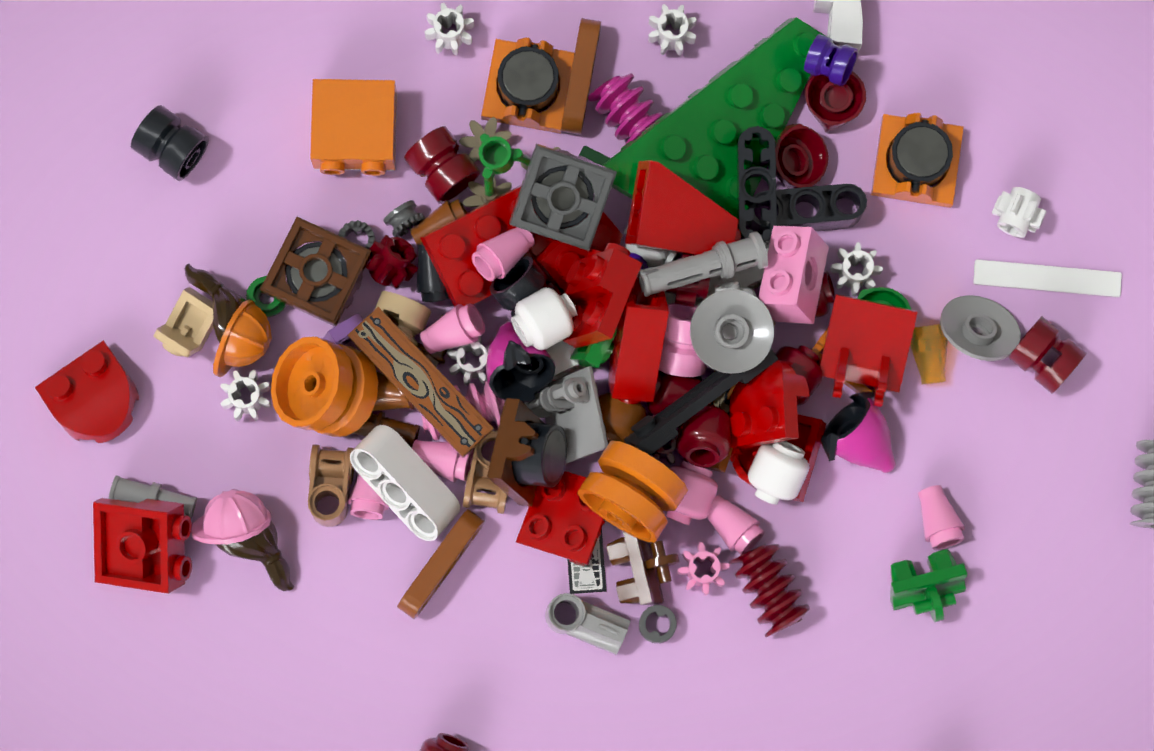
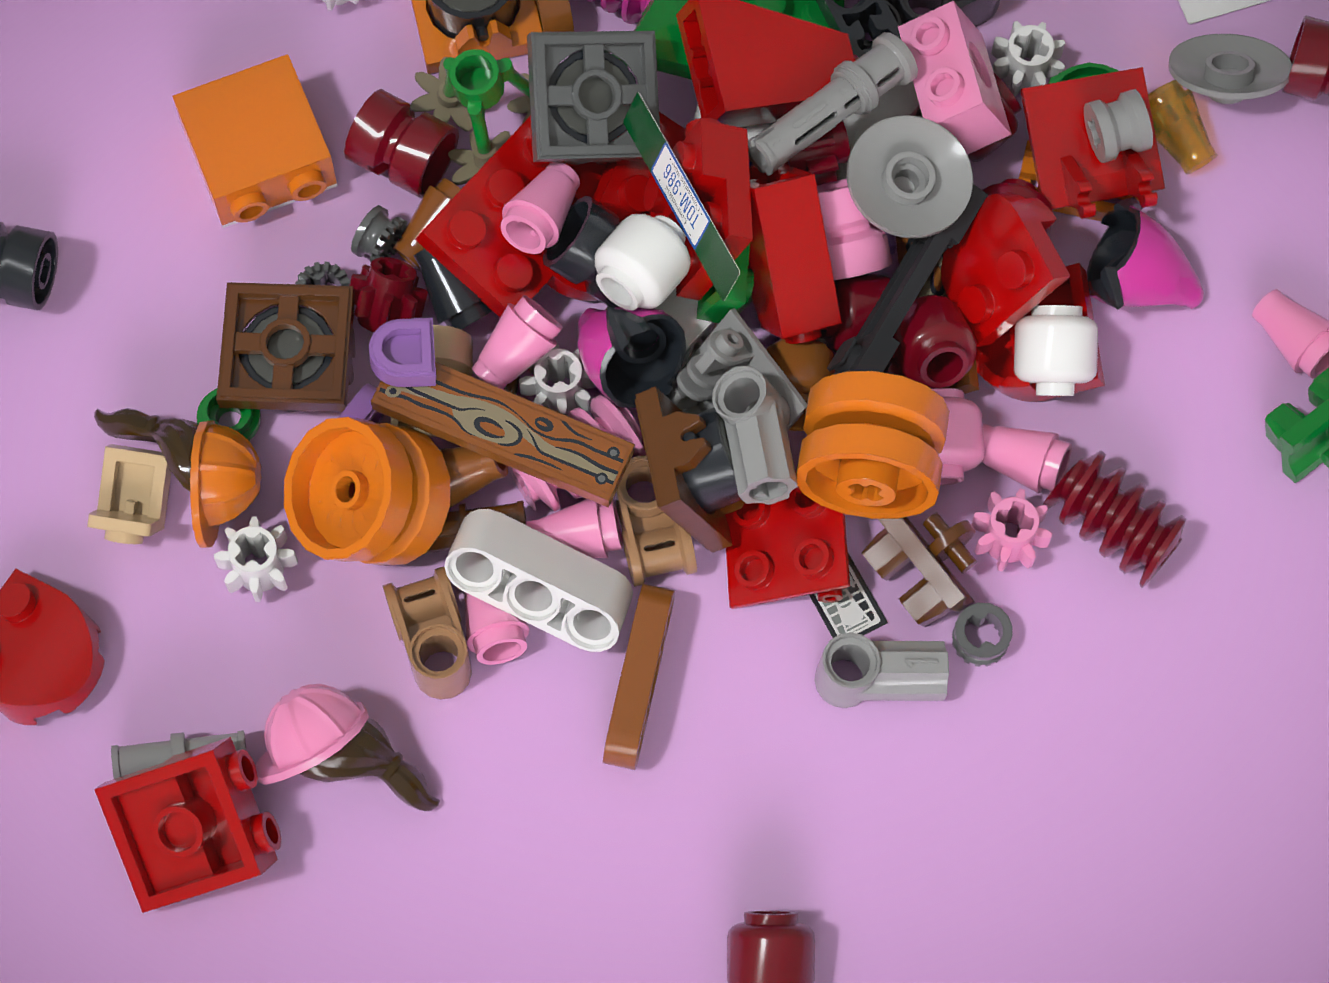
camera: 20 degrees left, 10 degrees down
(378, 314) = (404, 353): none -> medium lavender tile
(566, 457) = (756, 437): none -> light grey piece
(582, 290) = (681, 197): none -> sticker
(881, 346) = (1118, 125): none -> light grey wheel

